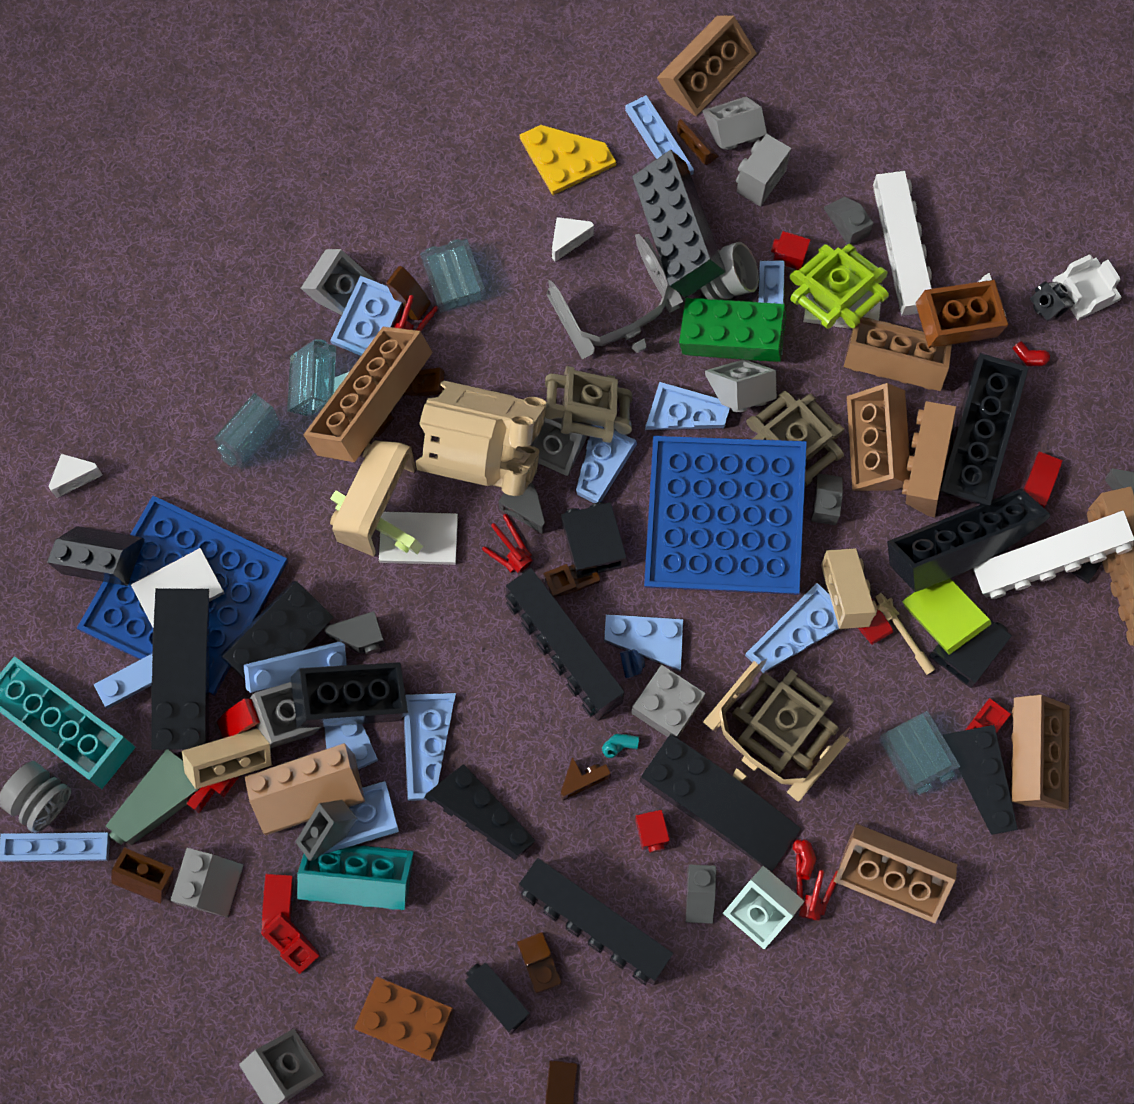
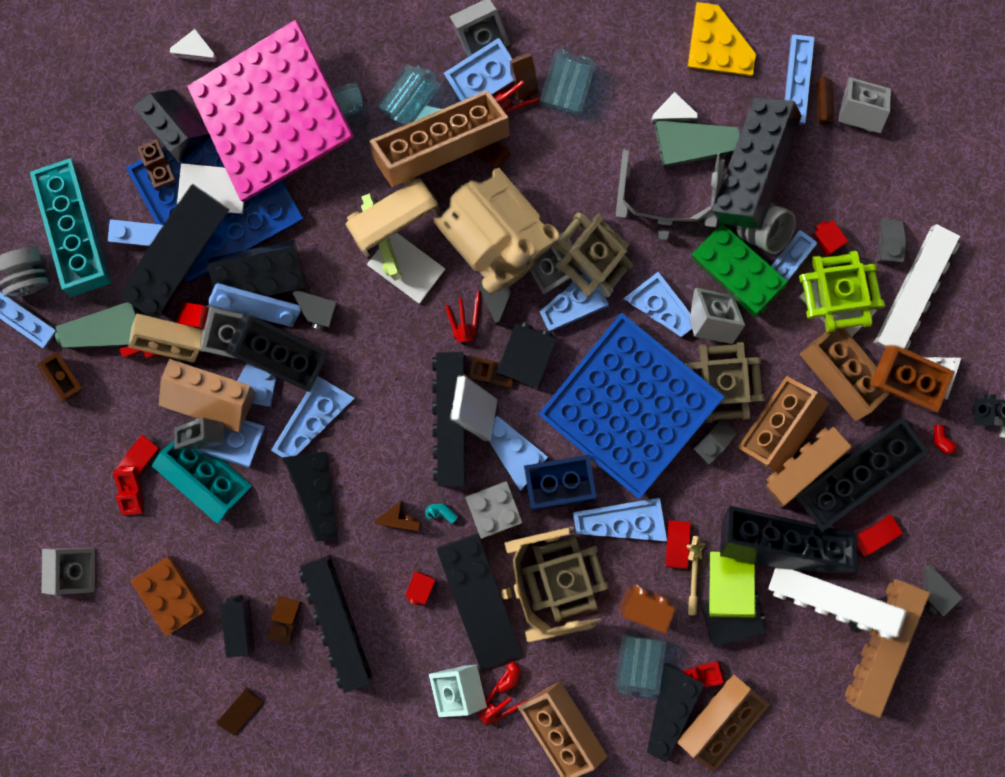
camera: 35 degrees right, 15 degrees up
(107, 602) = (157, 165): none -> reddish brown slope
(187, 476) = (270, 111): none -> plate
(207, 882) = (99, 411): light grey slope -> none
(580, 615) = (474, 408): none -> white tile
(605, 251) = (693, 142): none -> sand green slope
(632, 663) = (489, 463): dark blue plate -> none
(700, 893) = (422, 652): dark grey slope -> none
(707, 64) = (879, 42): medium nougat slope -> none
(714, 633) = (560, 483): none -> dark blue slope
(762, 169) = (854, 161): light grey brick -> none
(848, 588) = (677, 519): tan brick -> none
(885, 687) = (646, 609): none -> dark orange brick

